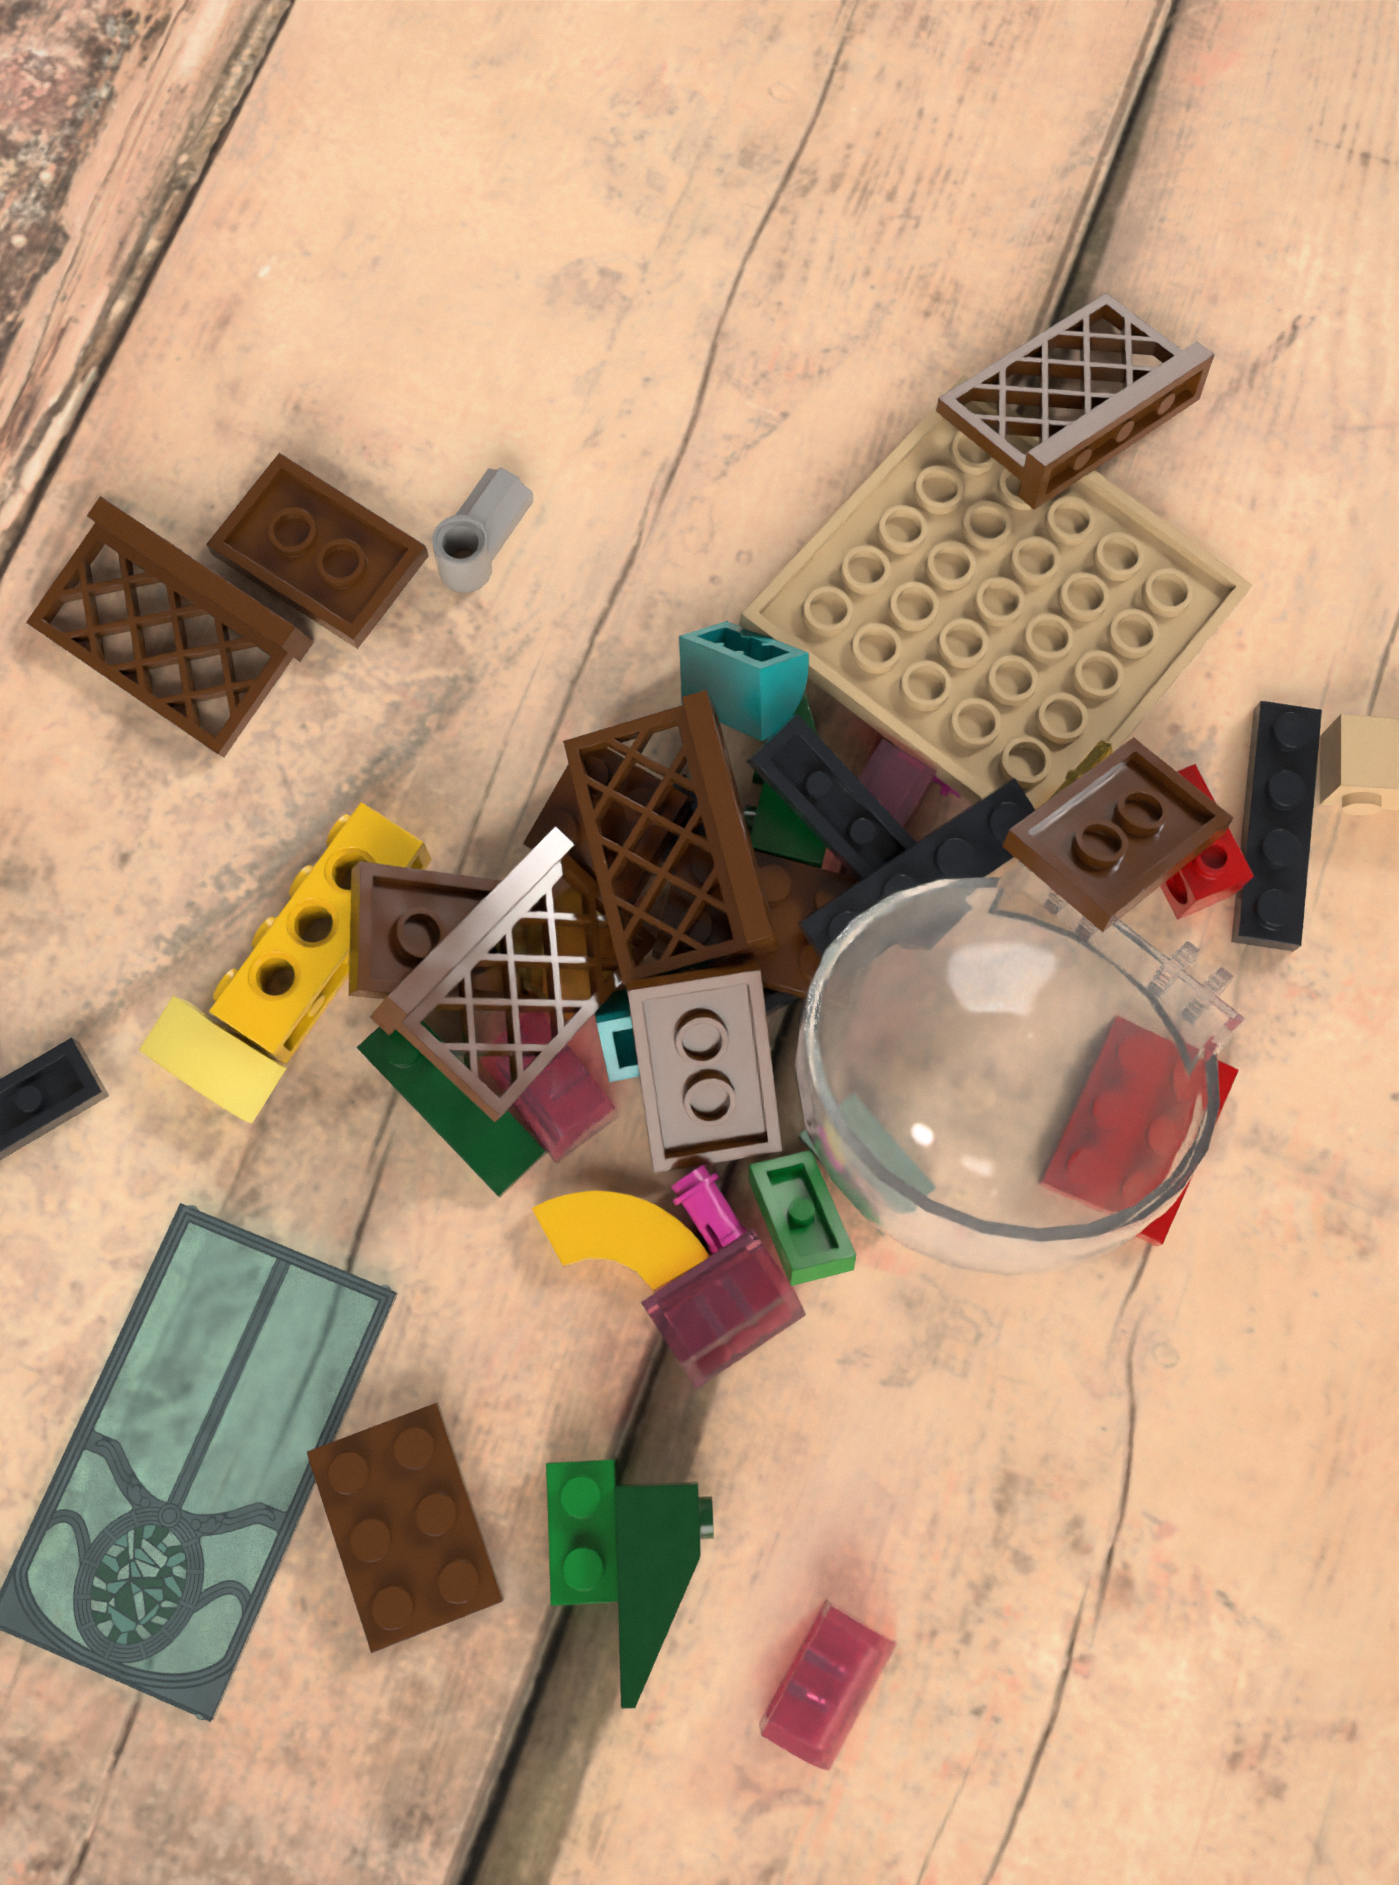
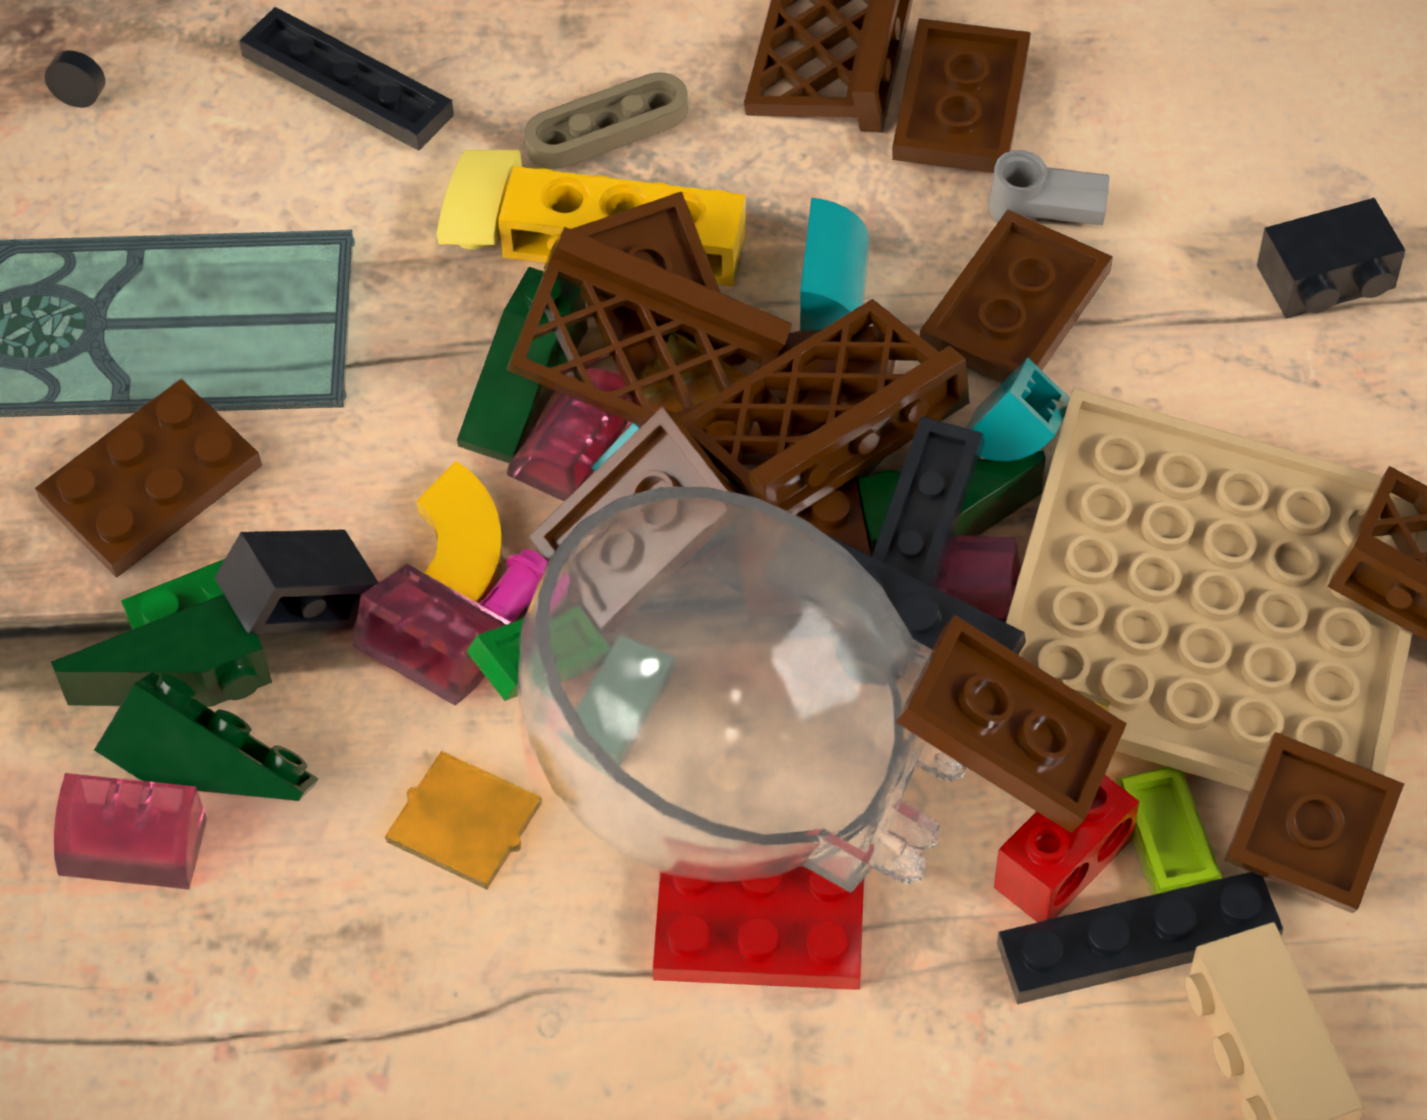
camera: 70 degrees right, 20 degrees down
(162, 871) = (606, 120): none -> dark tan plate
(477, 764) = (832, 265): none -> teal brick
(587, 616) = (1017, 297): none -> reddish brown plate
(630, 1423) = (295, 580): none -> black brick
(674, 330) = (1330, 258): none -> black brick
(772, 1592) = (176, 740): none -> dark green slope
(930, 1353) = (463, 819): none -> clear yellow piece
(1220, 754) = (1169, 831): none -> lime tile
(1256, 636) = (1314, 822): none -> reddish brown plate

